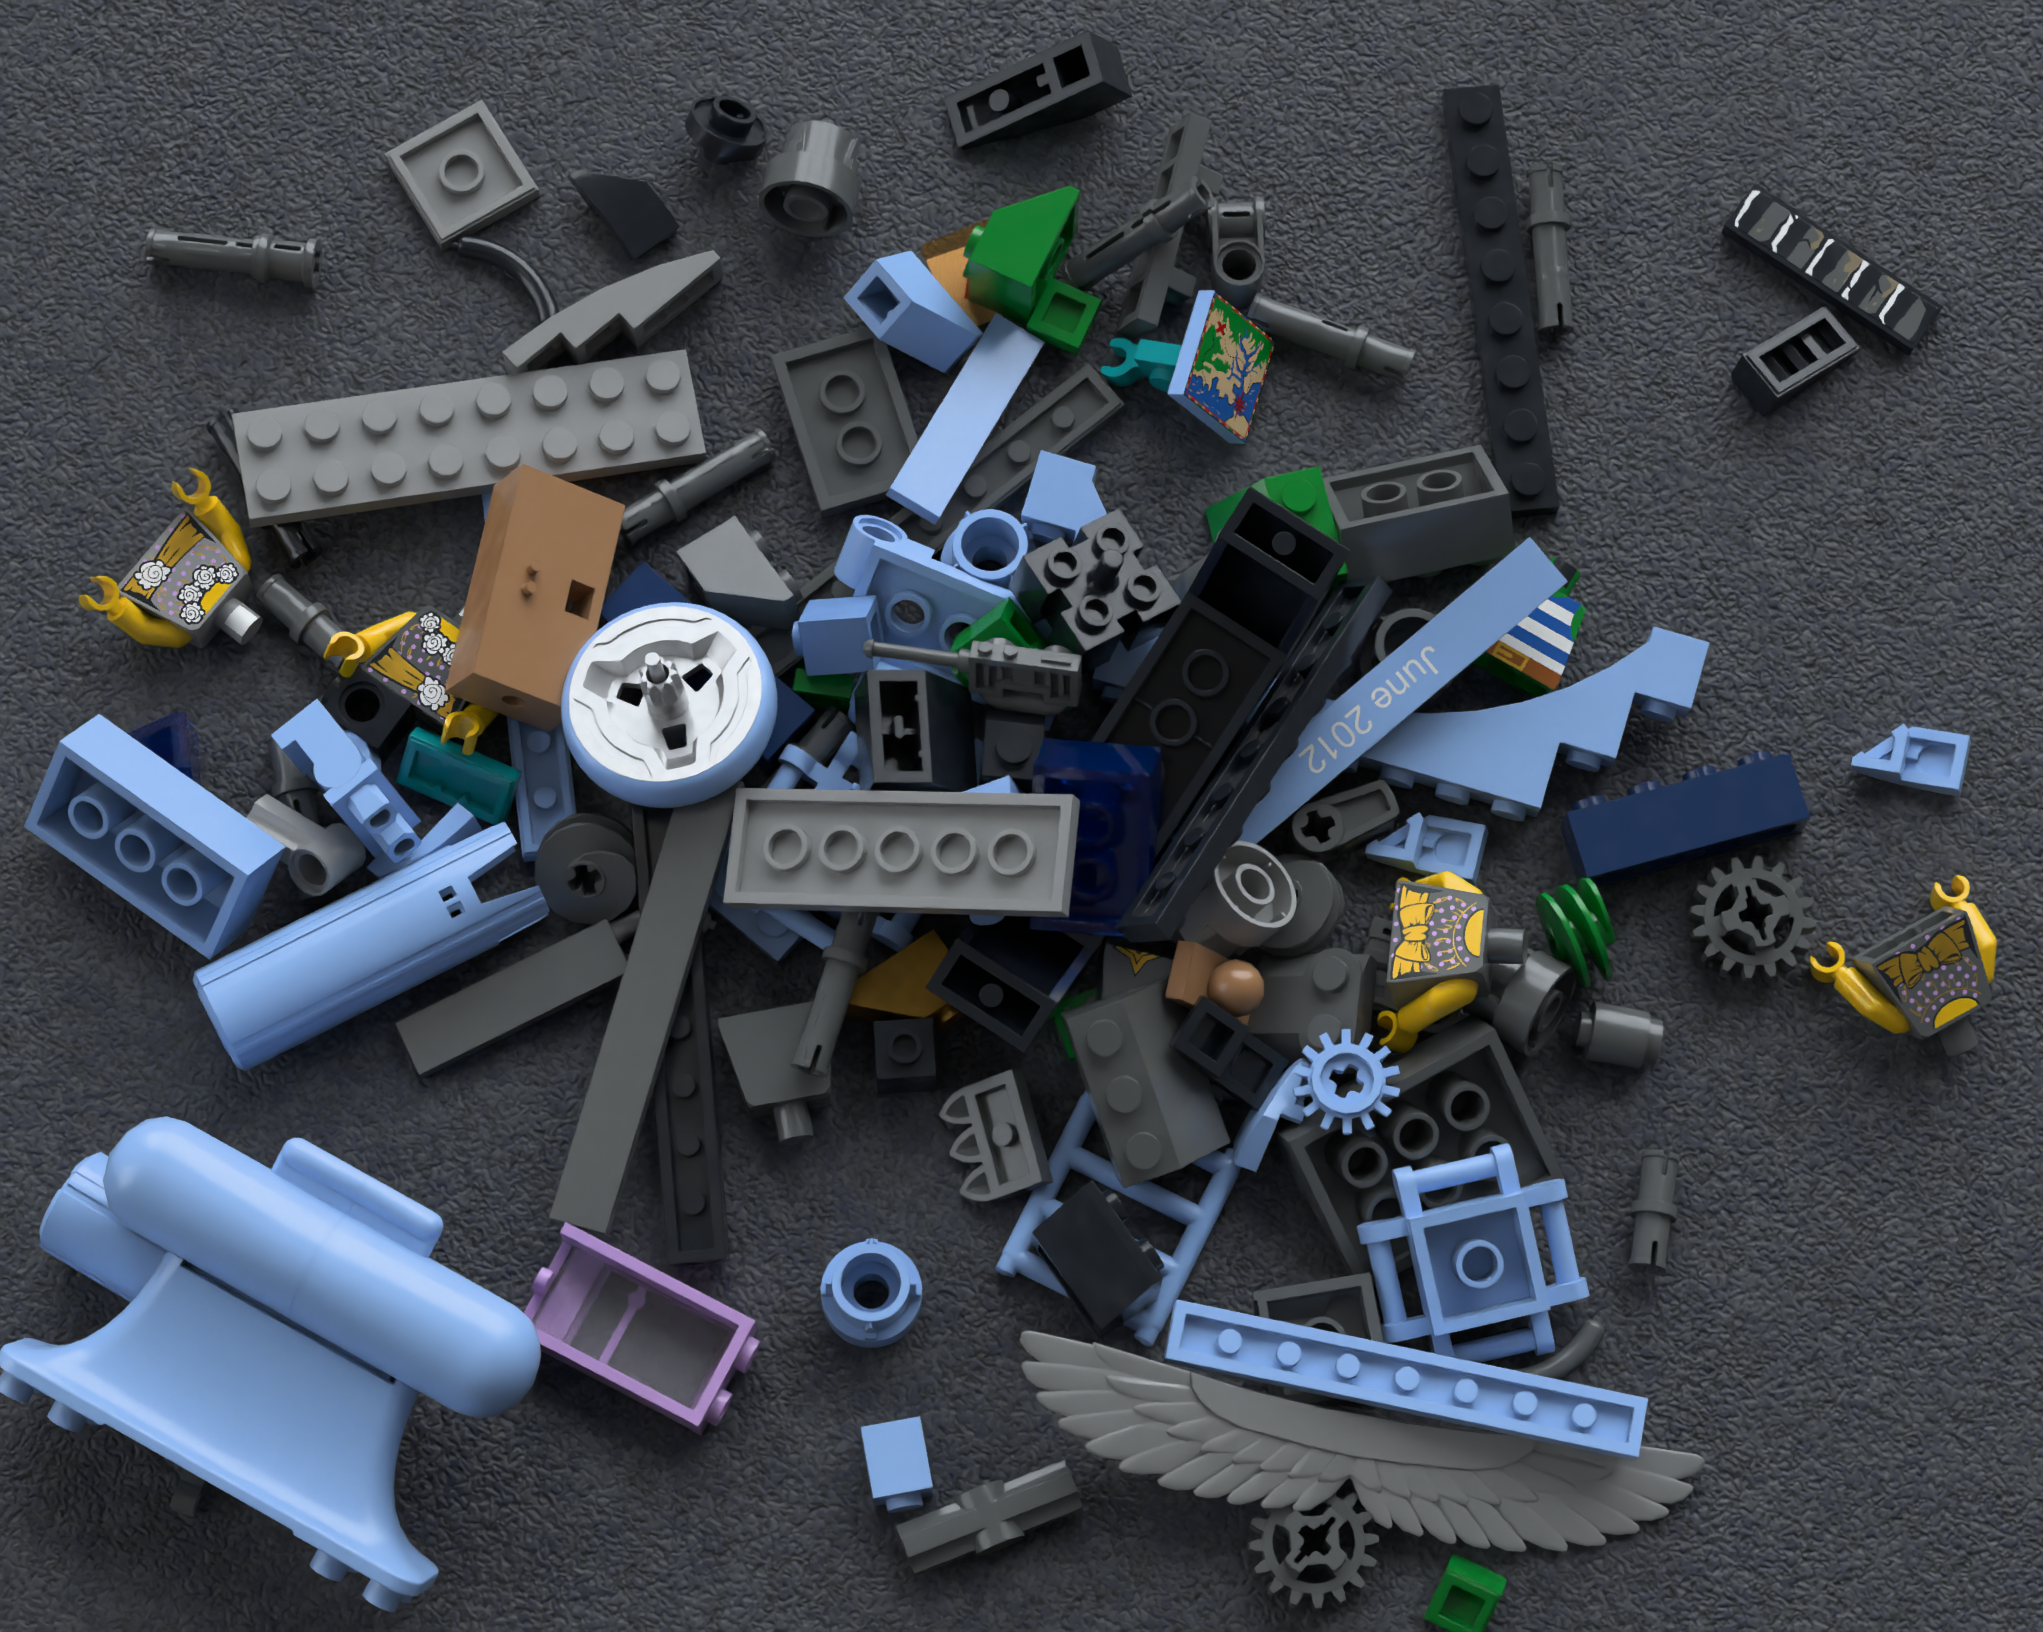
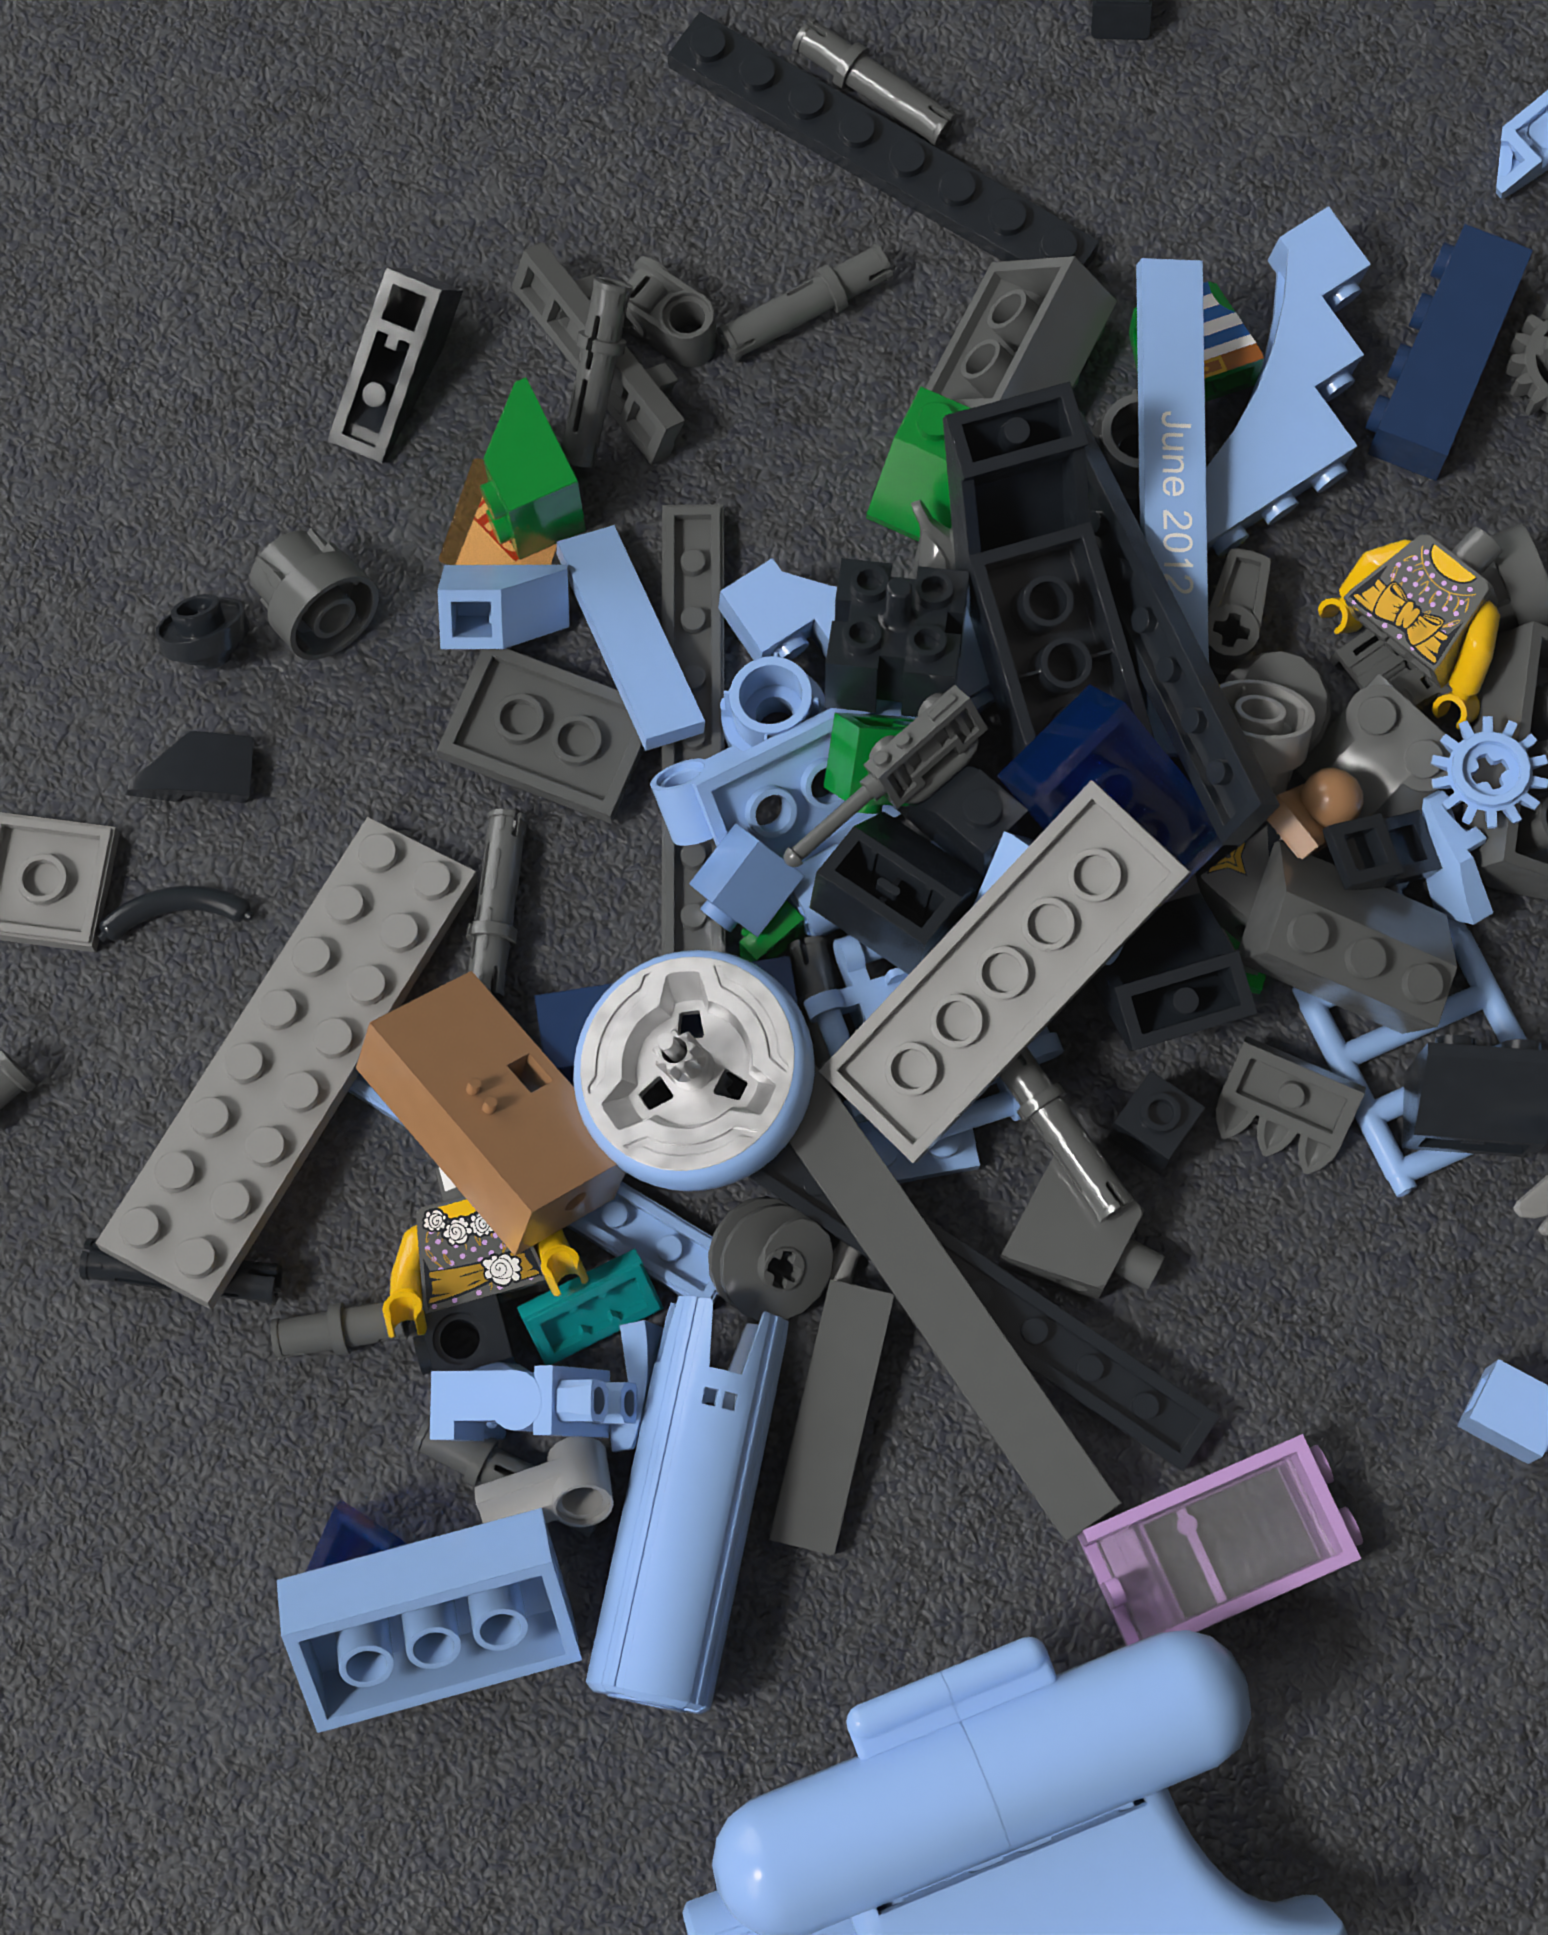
camera: 45 degrees left, 0 degrees up
(186, 580) = (208, 1405): torso -> none
(630, 306) = (290, 833): light grey slope -> none
(735, 577) = (611, 930): slope -> none
(864, 1263) = (1371, 1298): light blue piece -> none
(898, 987) = (1098, 1066): pearl gold slope -> none
(1064, 316) = (608, 492): green plate -> none
(1148, 359) = (717, 446): teal plate -> none
(1221, 367) = (763, 398): tile -> none
(1433, 846) = (1311, 560): light blue slope -> none
(1577, 926) = (1486, 495): green piece -> none

